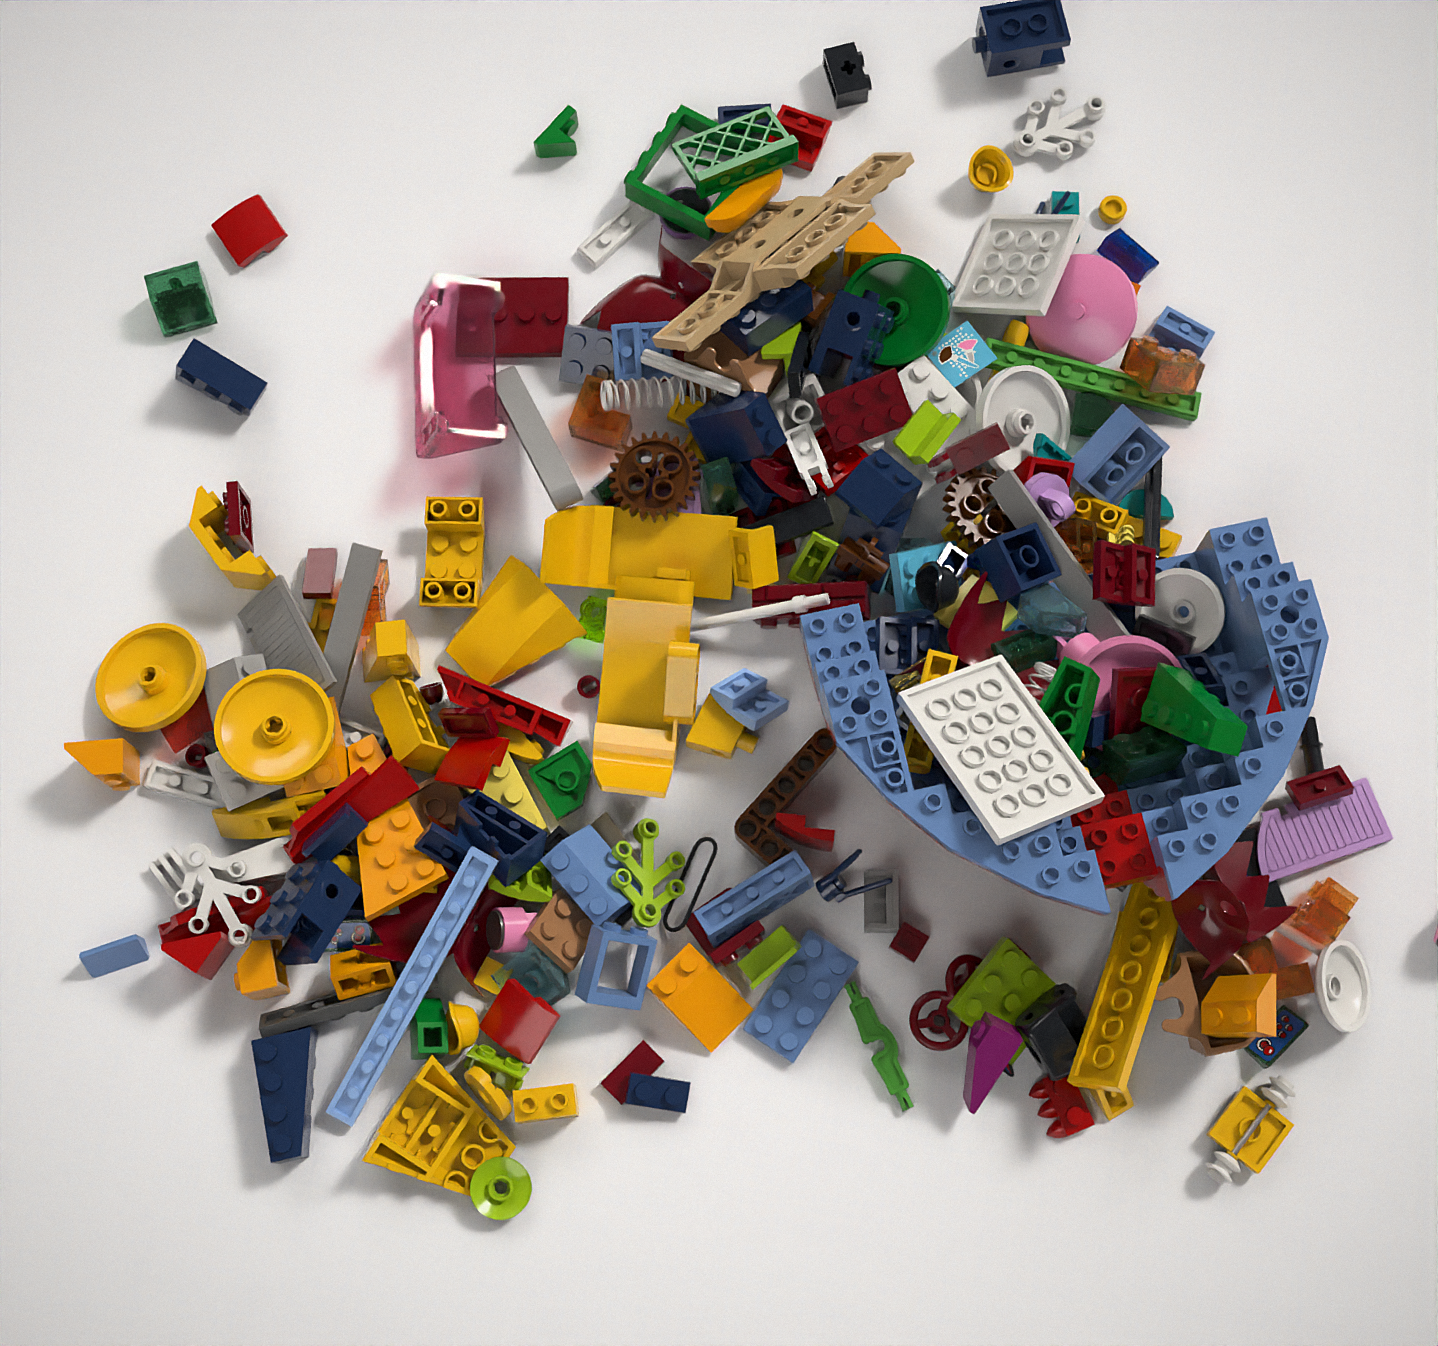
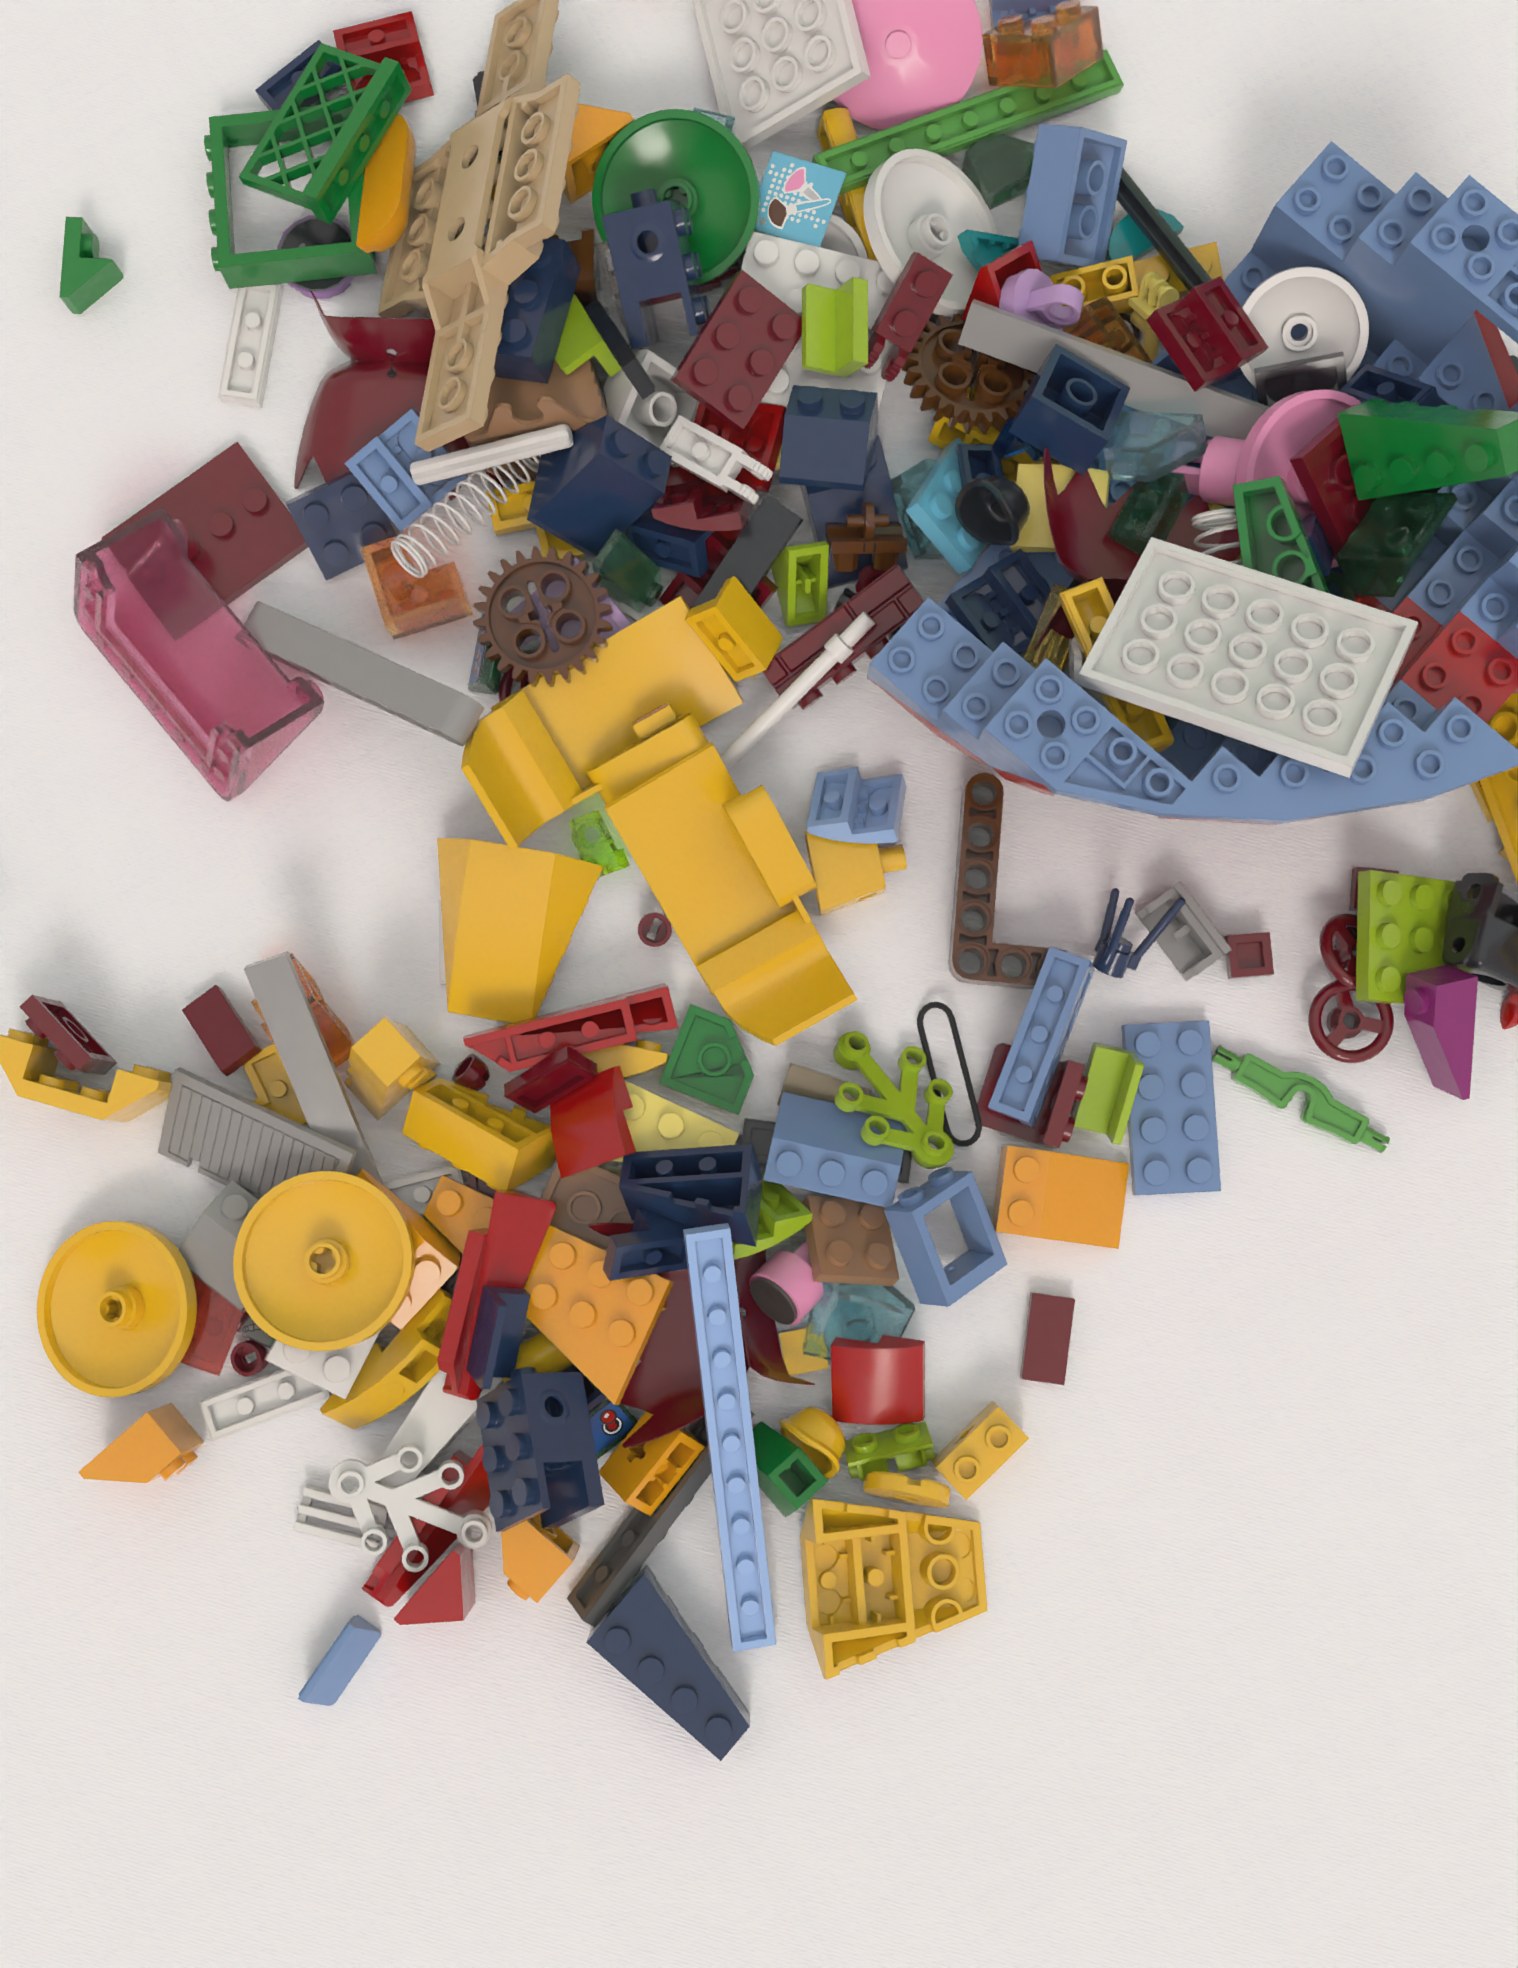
camera: 40 degrees left, 10 degrees up
(453, 552) = (366, 887): yellow slope -> none
(500, 1205) = (1019, 1592): lime dish -> none
(657, 1092) = (1094, 1340): dark blue plate -> none
(793, 828) = (1034, 919): red slope -> none

